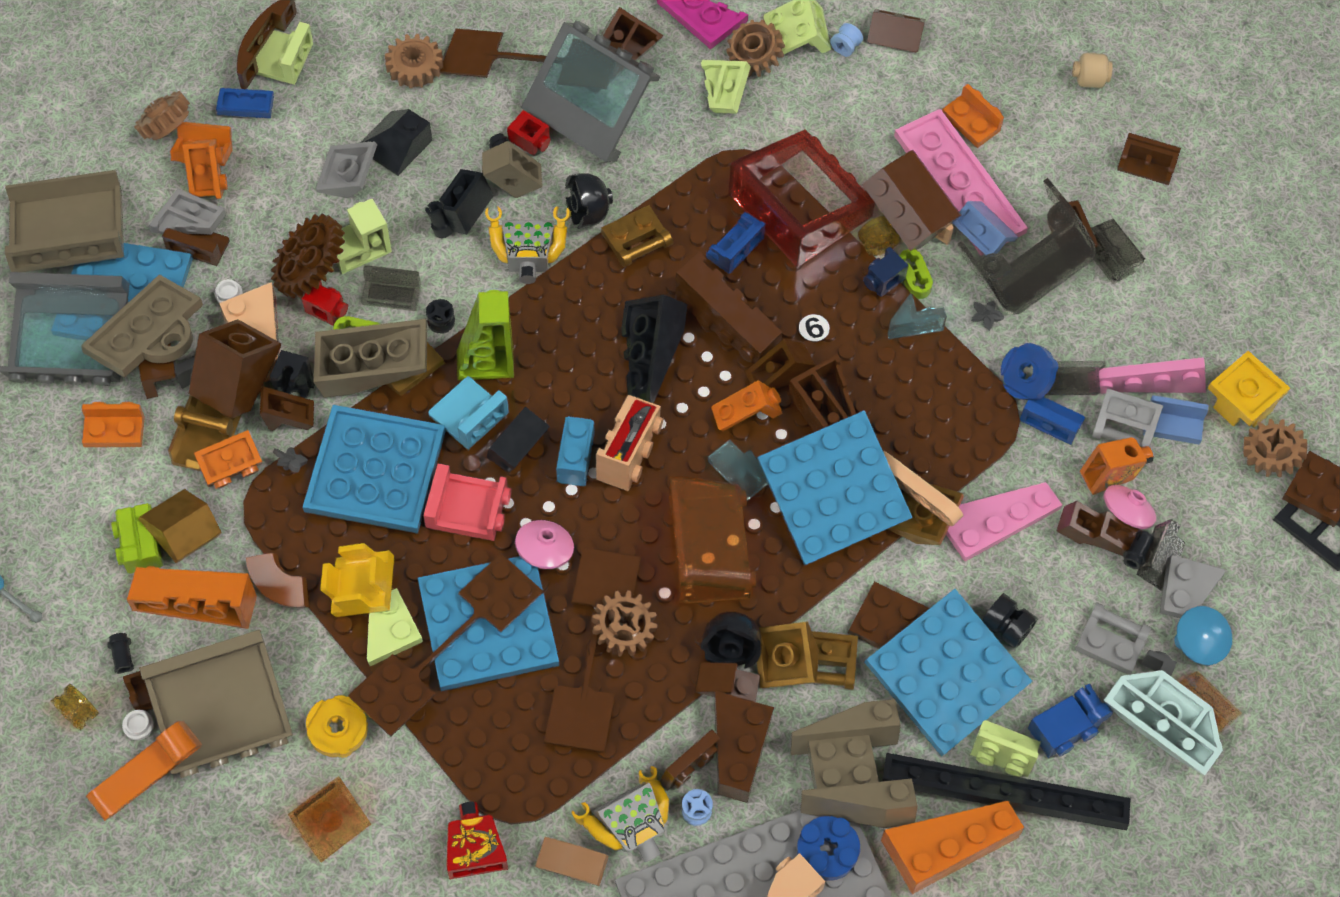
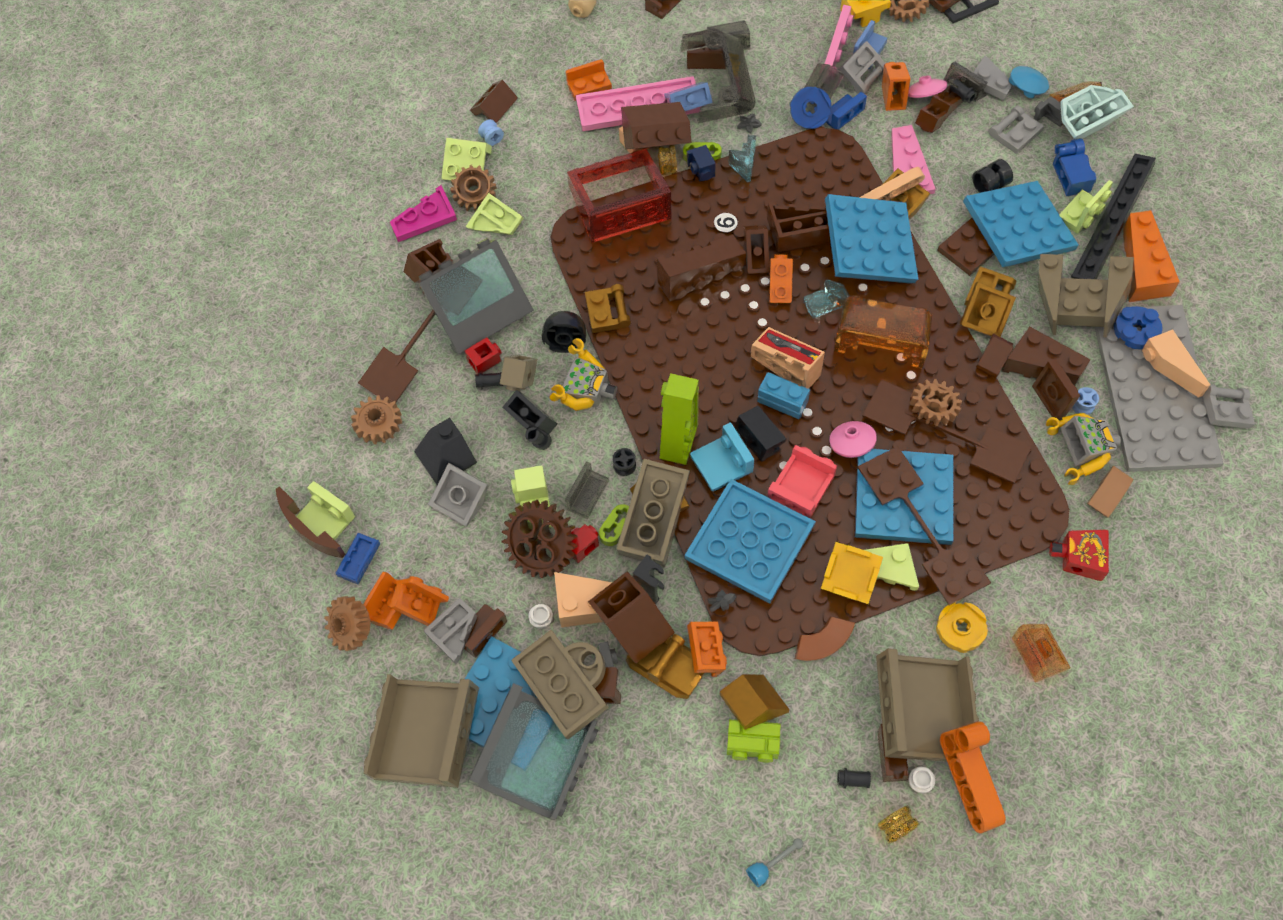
camera: 65 degrees left, 0 degrees up
(113, 425) = (636, 739): orange bracket -> none
(194, 595) = (822, 704): orange wedge -> none
(285, 408) = (673, 595): reddish brown slope -> none
(652, 336) = (707, 323): black wedge -> none
(732, 639) = (967, 336): black cylinder -> none
(737, 243) = (639, 245): blue hinge -> none

